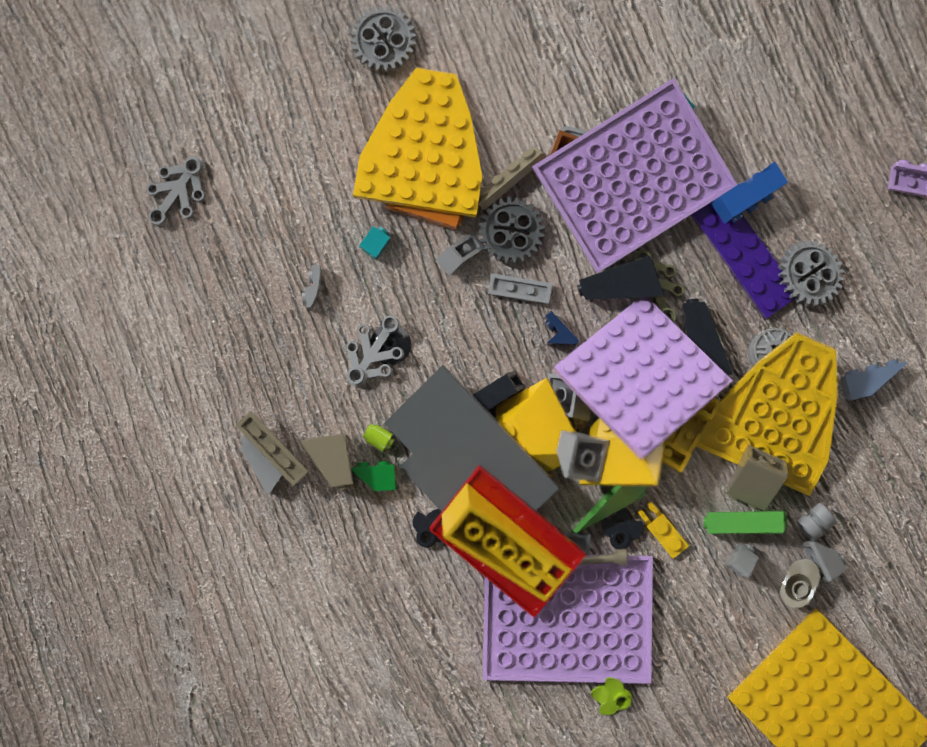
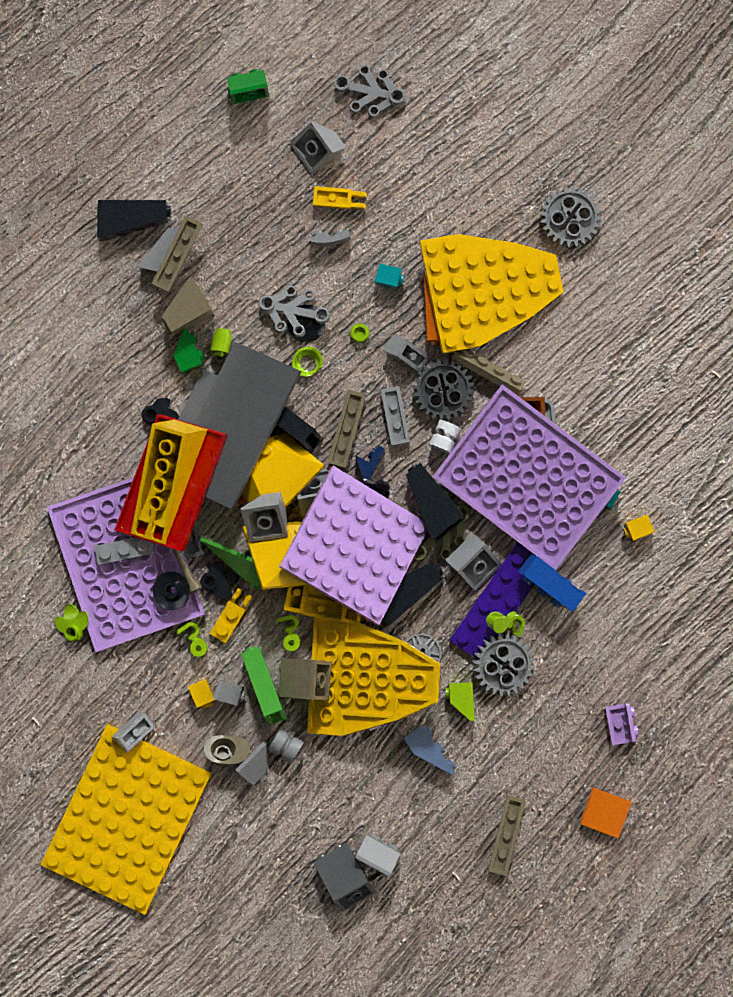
camera: 80 degrees right, 0 degrees up
(123, 312) = (248, 86): none -> green slope
(211, 486) = (129, 216): none -> black slope
(213, 265) = (317, 146): none -> light grey slope
(274, 265) = (337, 198): none -> yellow hinge
(421, 293) = (359, 333): none -> lime tile
(421, 350) = (305, 351): none -> lime piece
(515, 342) = (346, 428): none -> dark tan plate
(557, 239) = (445, 436): none -> white wheel
(557, 617) = (123, 550): none -> light grey plate
(589, 330) = (380, 486): none -> black plate
(620, 590) = (163, 594): none -> black dish
(681, 574) = (198, 646): none -> lime leg
(696, 264) = (473, 562): none -> light grey slope
(710, 477) = (292, 640): none -> lime leg
(722, 89) = (638, 528): none -> yellow brick
(732, 588) = (202, 694): none -> yellow brick
(746, 673) = (133, 731): none -> light grey slope
(771, 258) = (500, 623): none -> lime leg
(830, 326) = (462, 698): none -> lime slope

